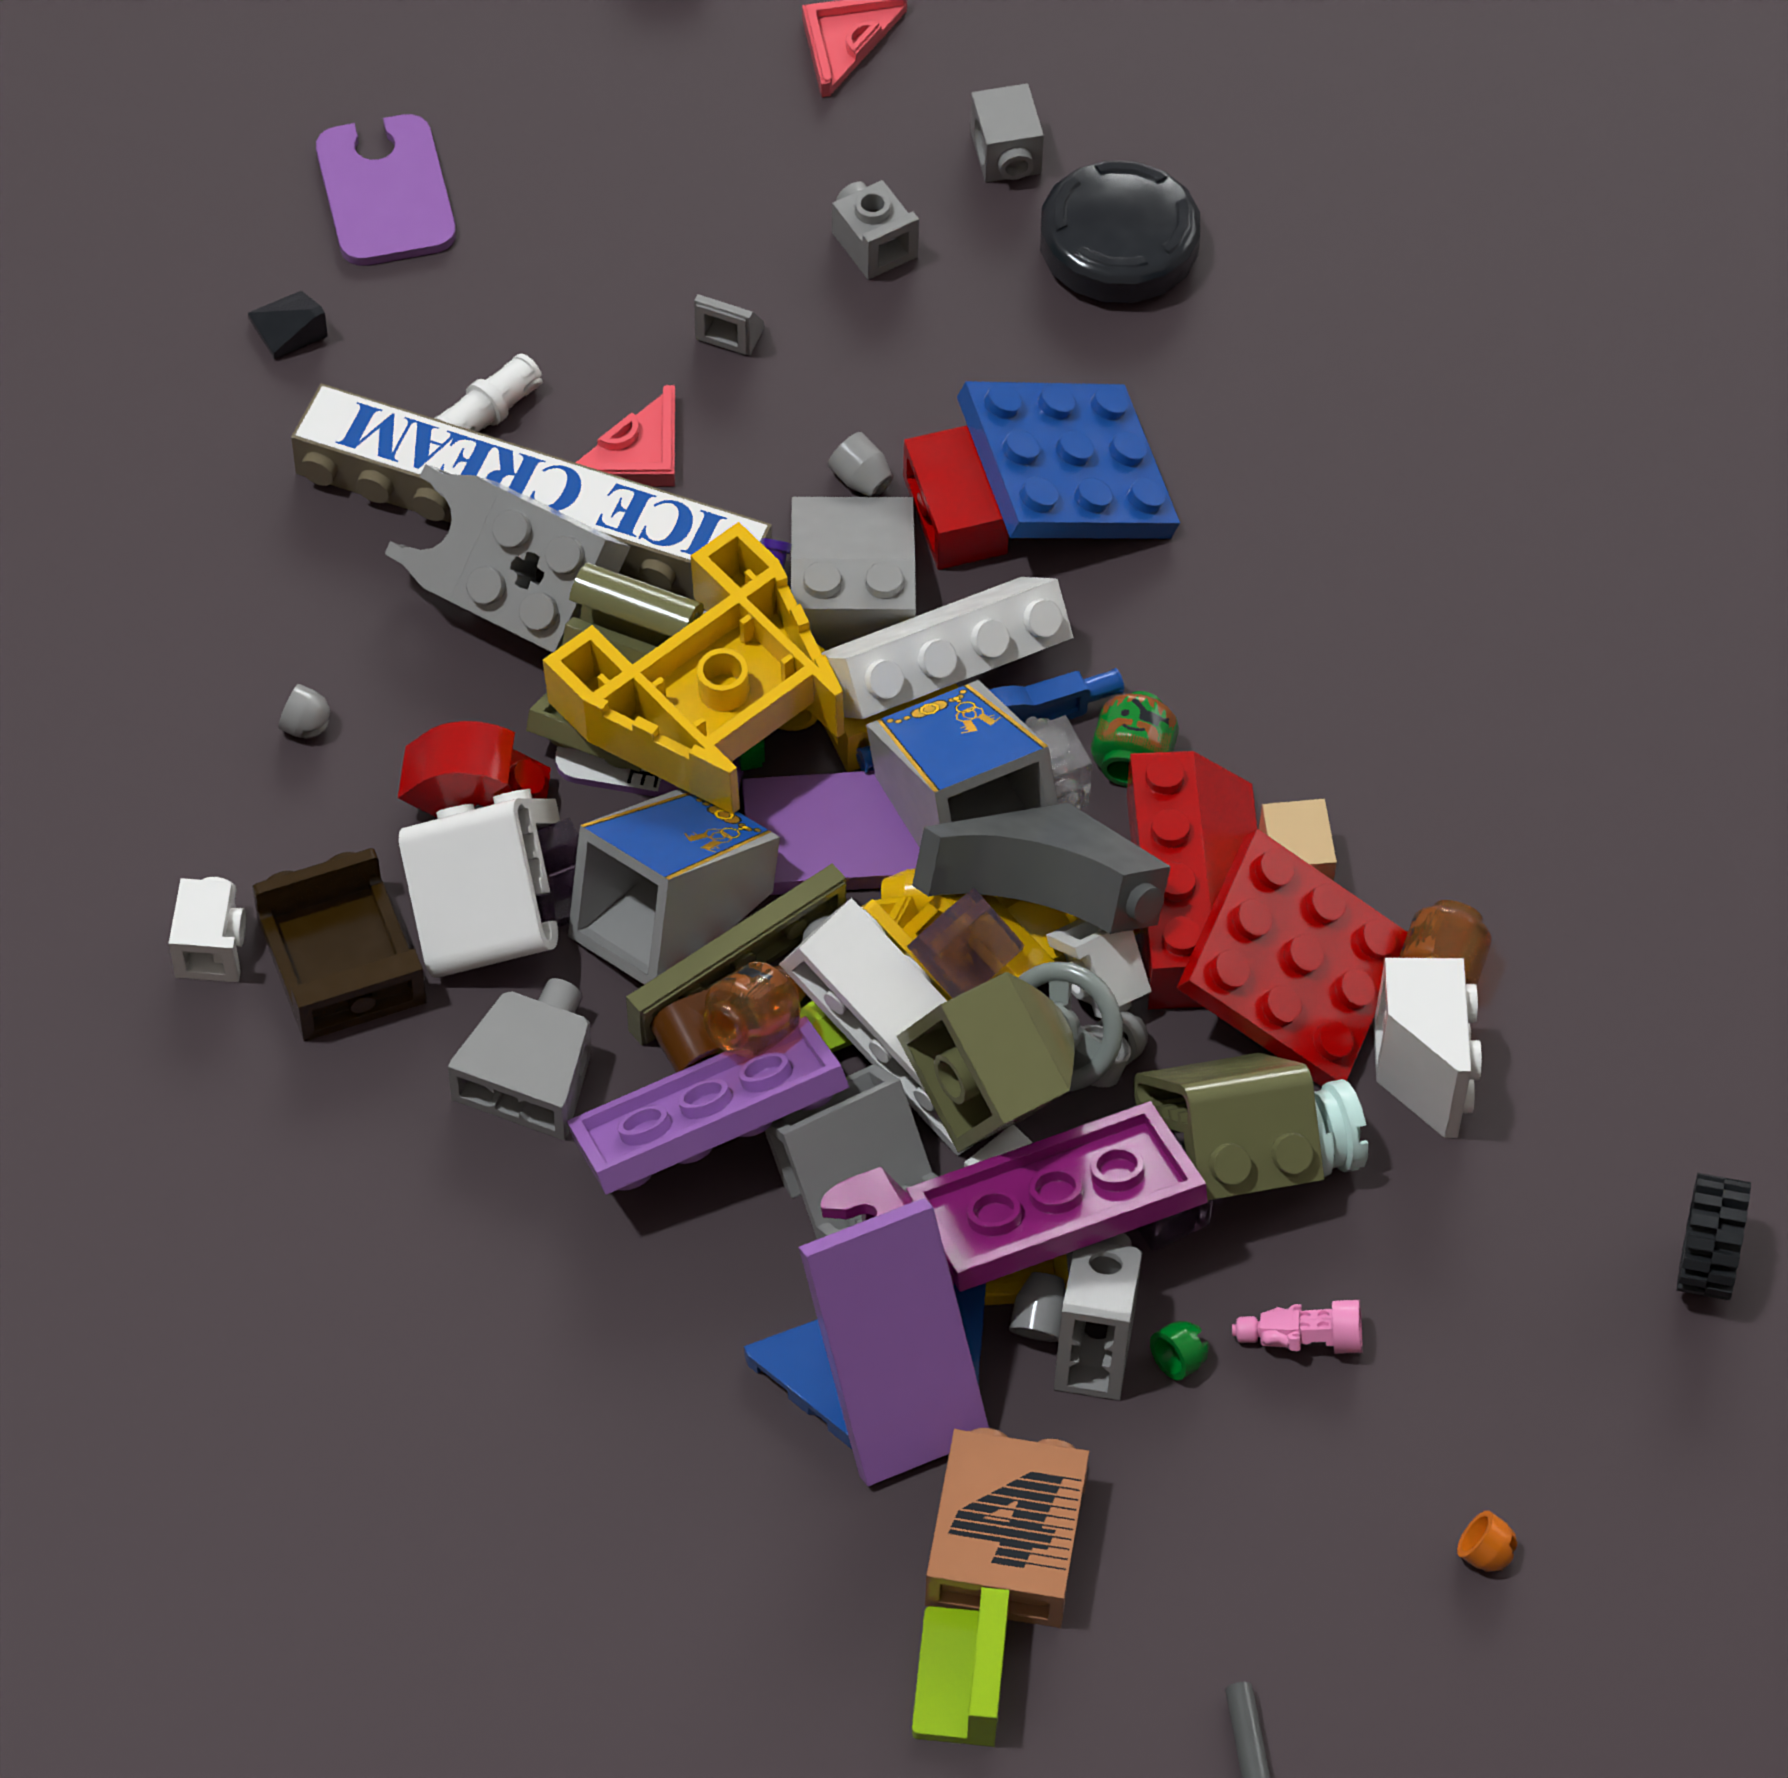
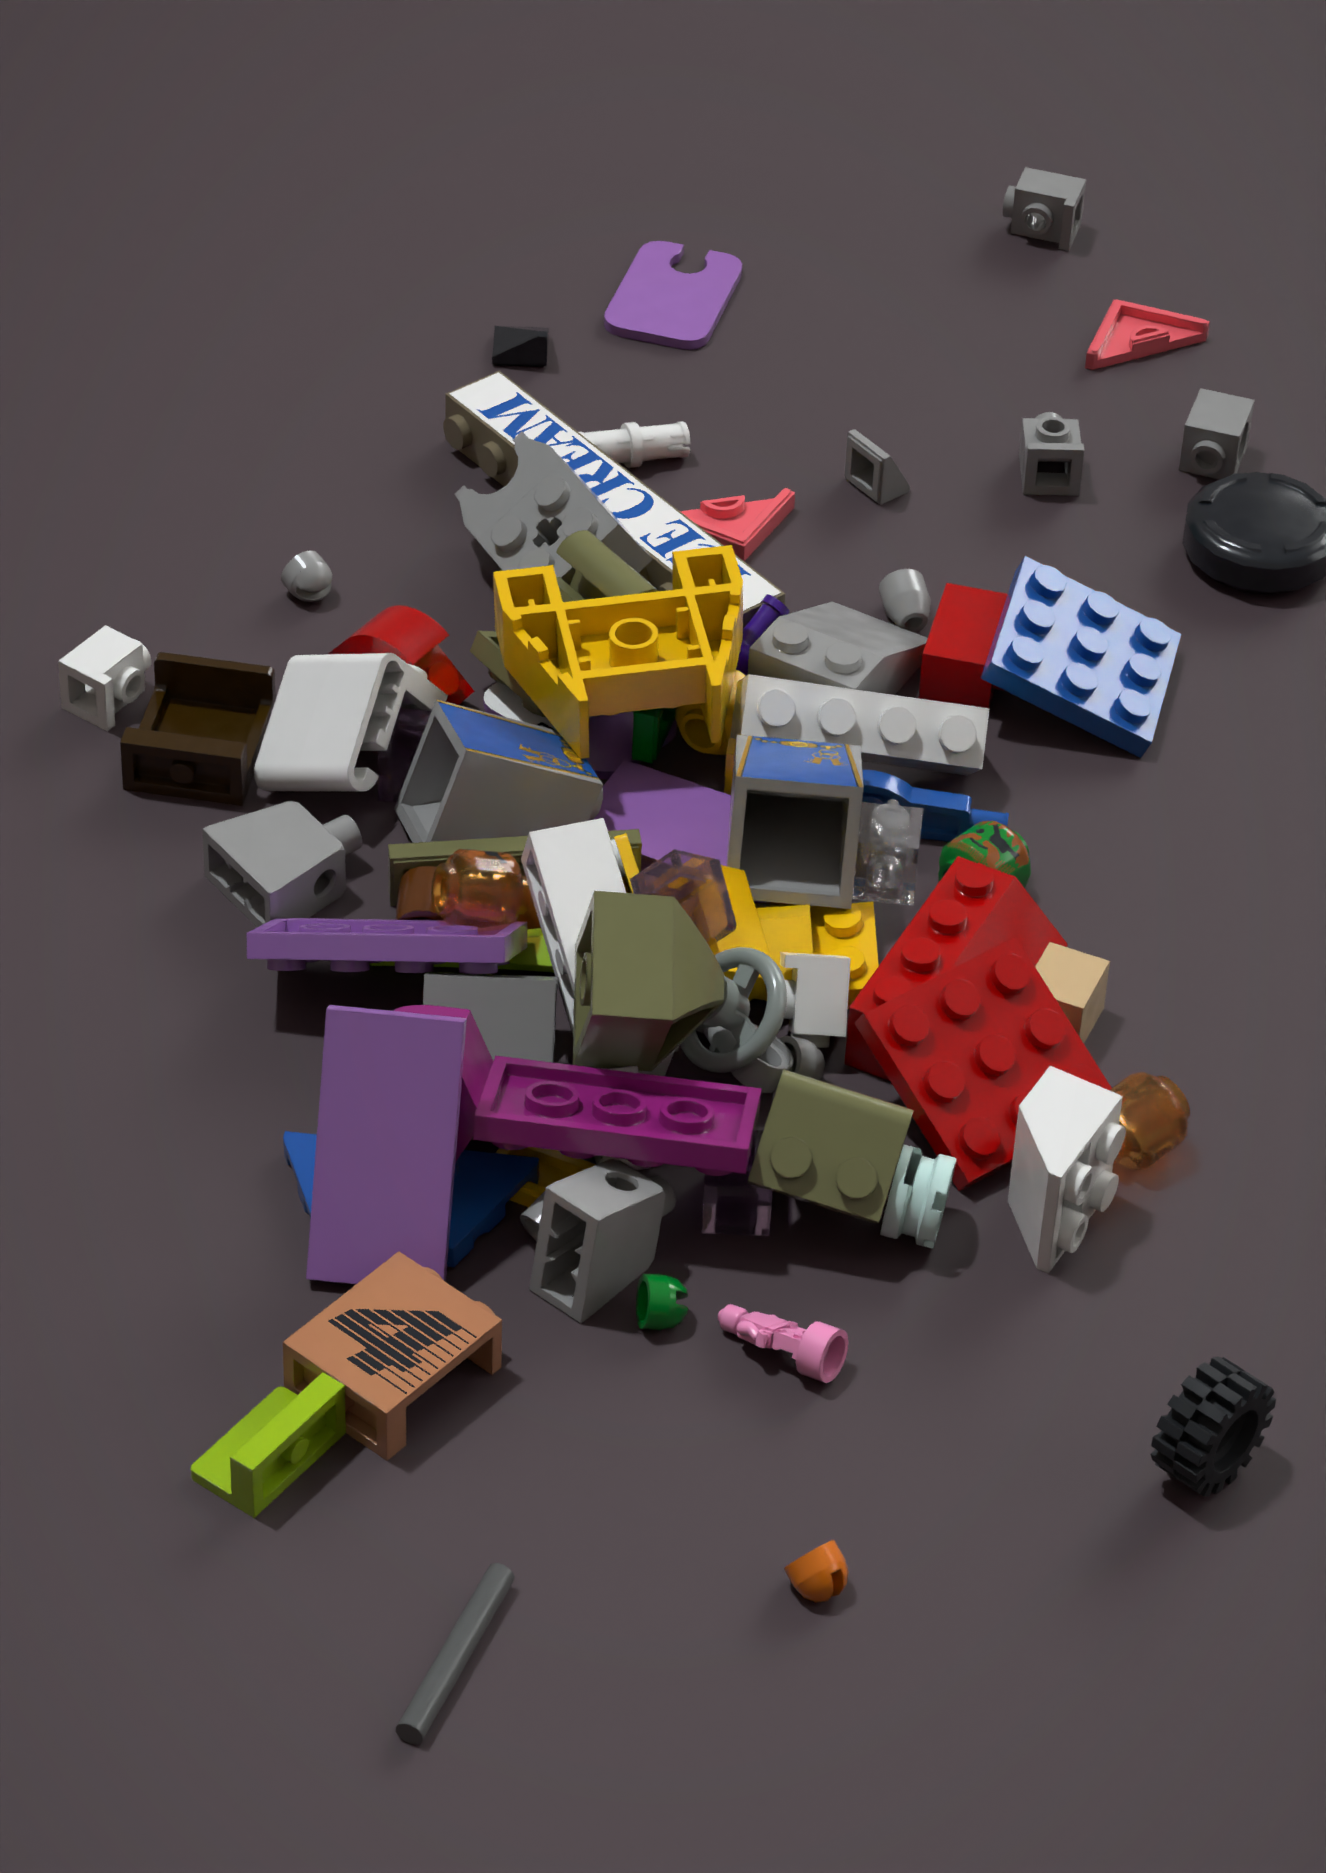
camera: 30 degrees right, 15 degrees down
(1048, 859) = (809, 880): dark grey arch -> none

